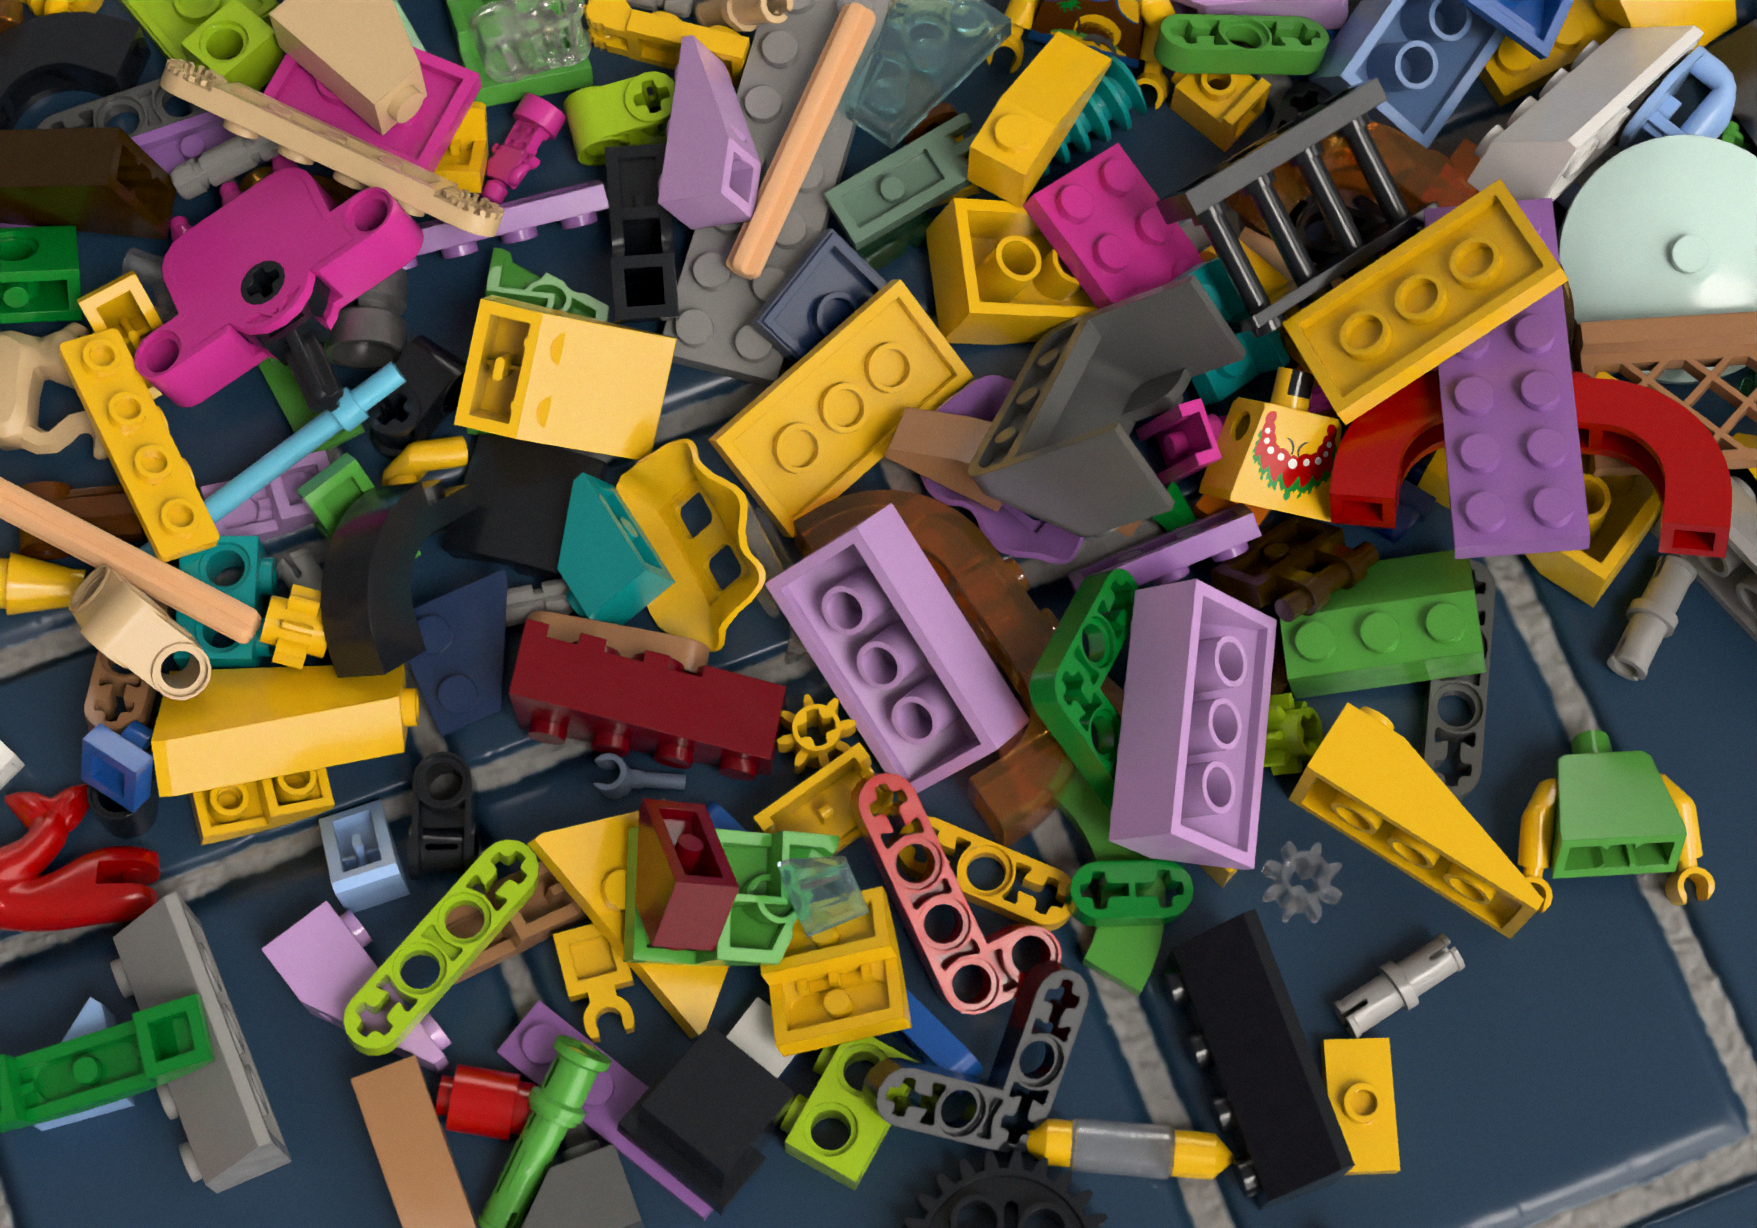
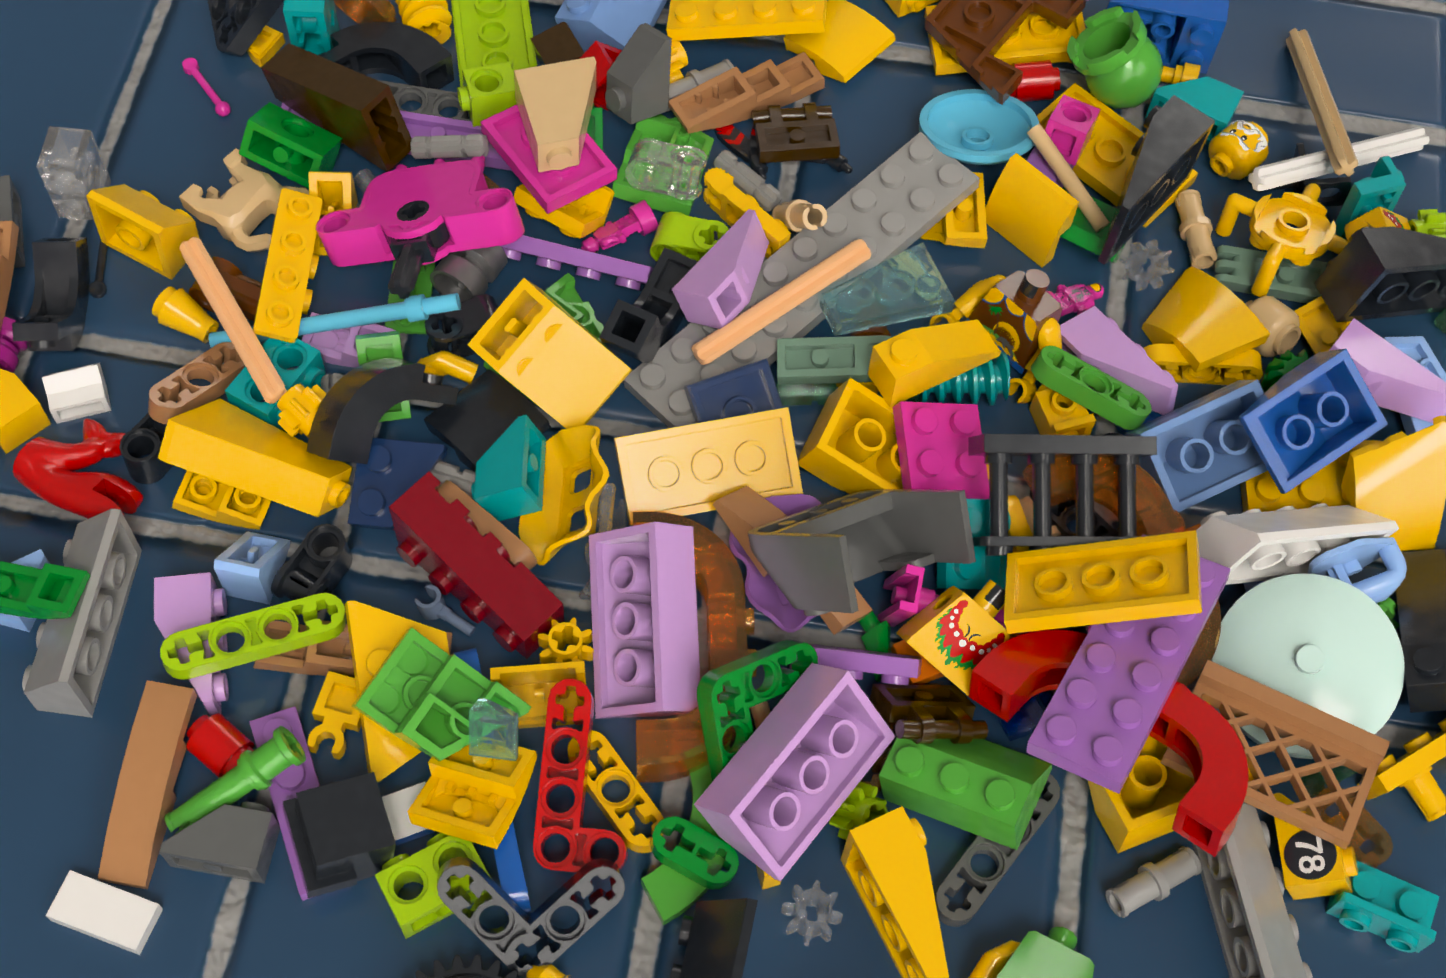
camera: 30 degrees right, 10 degrees down
(119, 763) = (147, 426): blue tile -> none
(137, 633) = (204, 354): tan piece -> none
(310, 140) = (509, 171): tan plate -> none
(682, 876) = (414, 670): slope -> none

